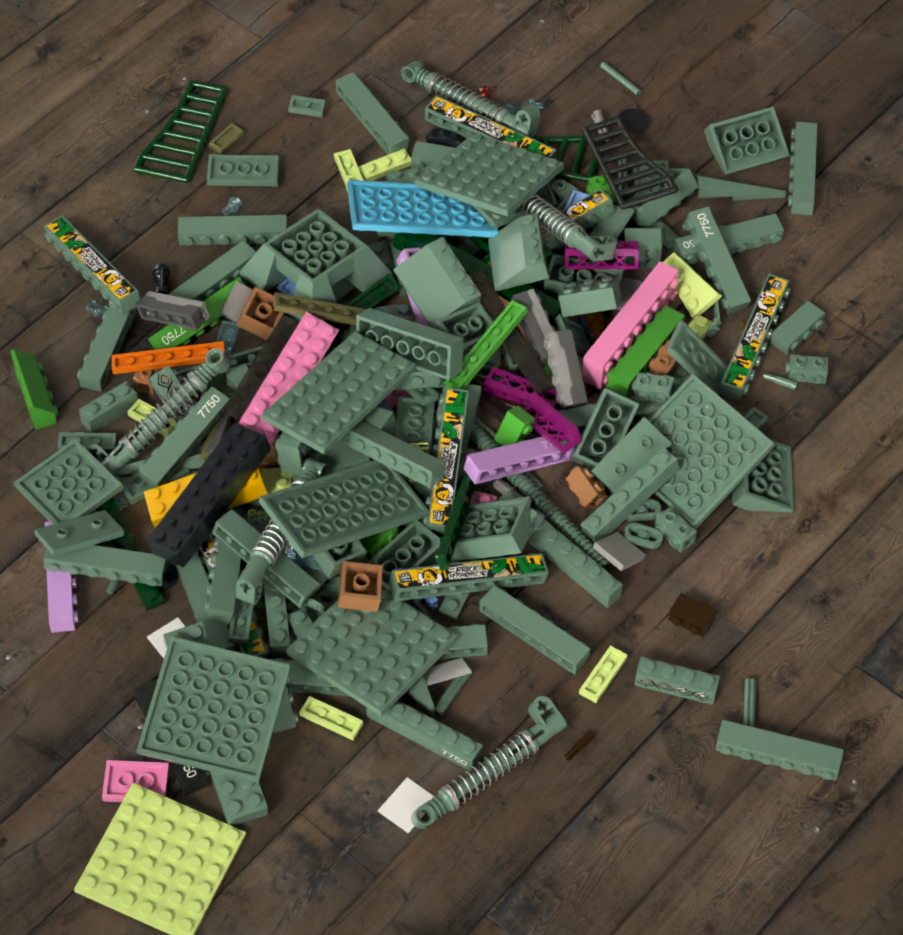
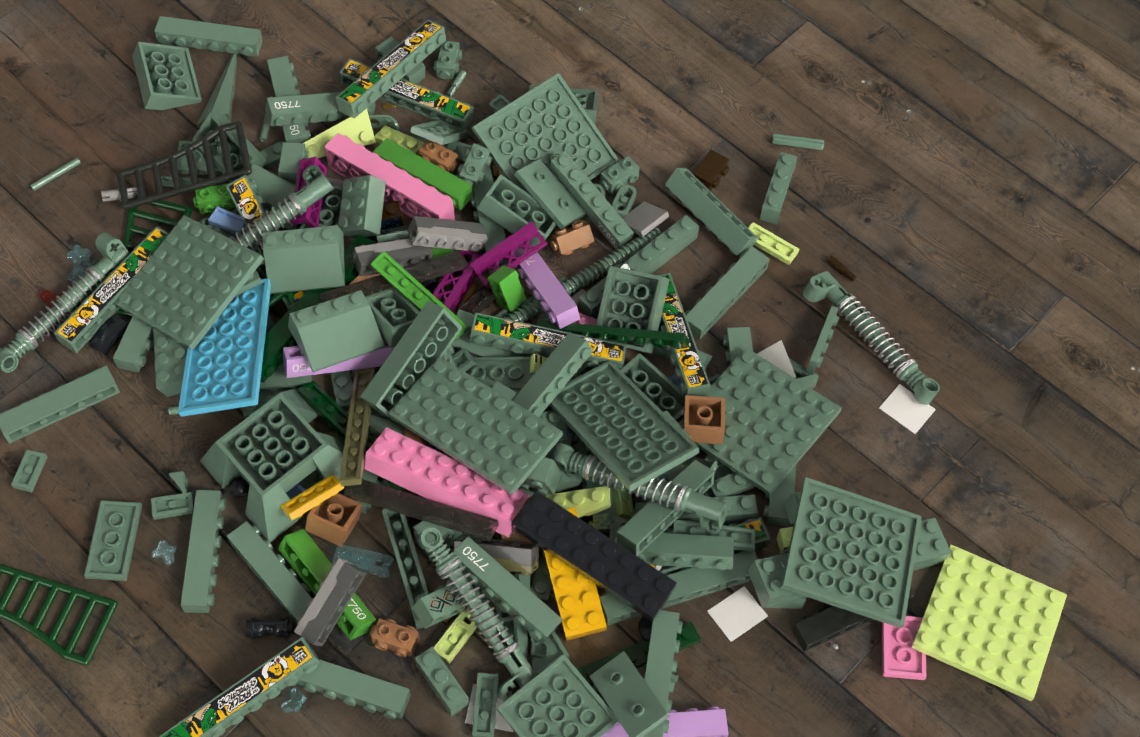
camera: 90 degrees left, 5 degrees up
(163, 357) = (393, 609): orange plate -> none
(226, 139) = (59, 559): olive tile -> none
(236, 301) = (315, 542): light grey tile -> none
(266, 281) = (312, 497): none -> yellow plate
(275, 202) = (172, 505): none -> sand green plate
(296, 207) = (180, 481): none -> sand green slope
(331, 718) = (827, 461): yellowish green plate -> none
(347, 166) = (136, 430): yellowish green plate -> none
(386, 164) = (132, 397): yellowish green plate -> none
(430, 734) = (847, 370): sand green brick -> none
(472, 713) = (821, 345): none -> sand green plate
(634, 120) = (116, 163): black piece -> none
(635, 612) = (711, 211): none -> sand green brick
(772, 310) = (390, 69): none -> brick
(779, 750) = (842, 124): sand green brick -> none

